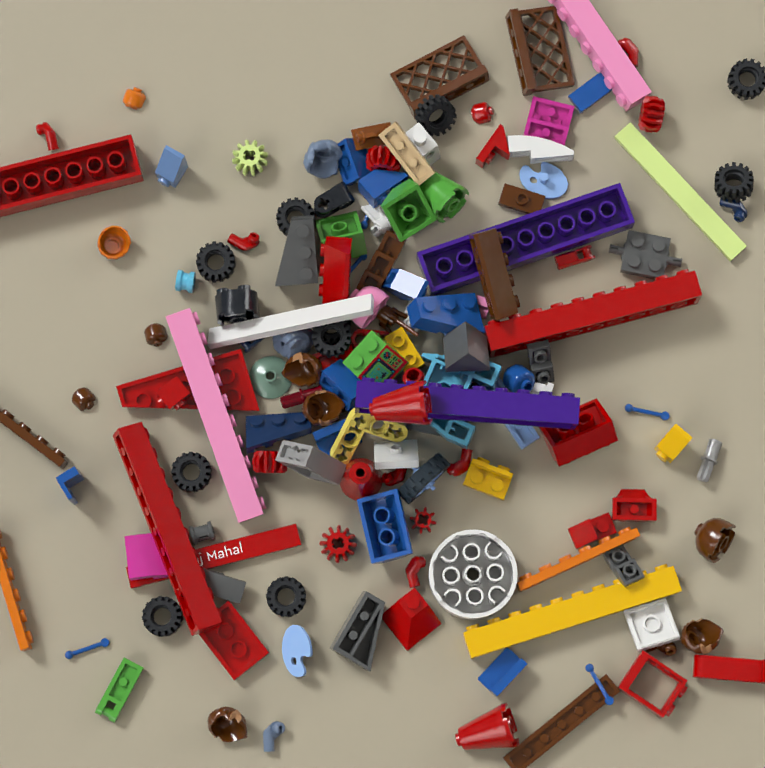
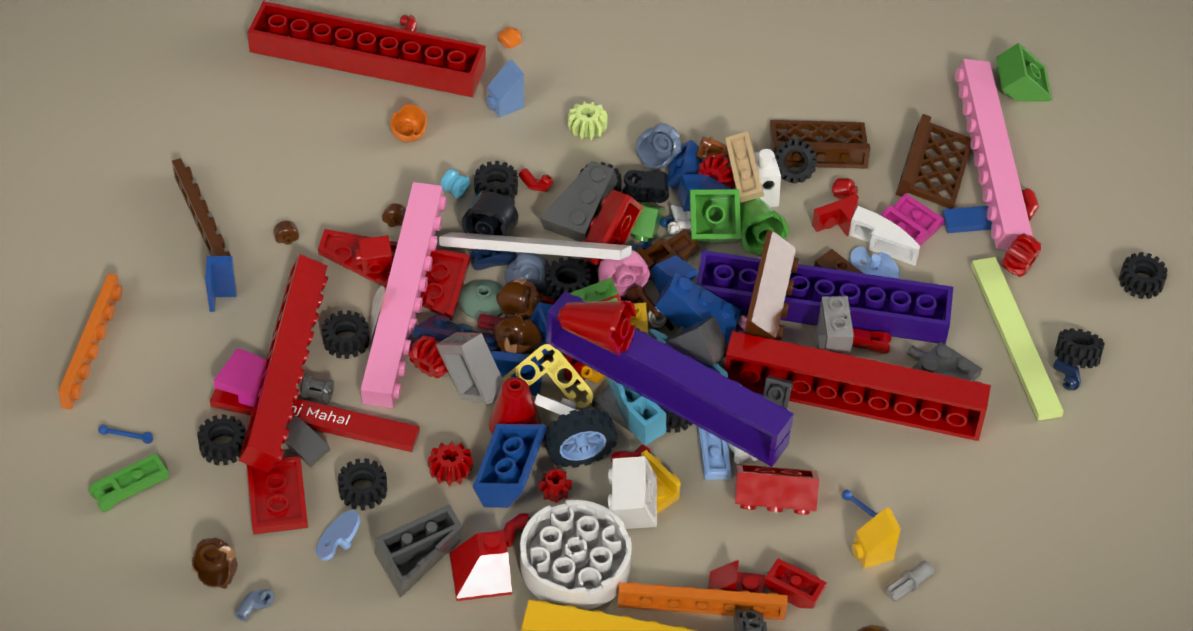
camera: 25 degrees right, 30 degrees down
(204, 441) = (376, 305): none -> white sticker
(487, 505) = (633, 492): none -> white brick
(557, 285) = (833, 330): none -> light grey window

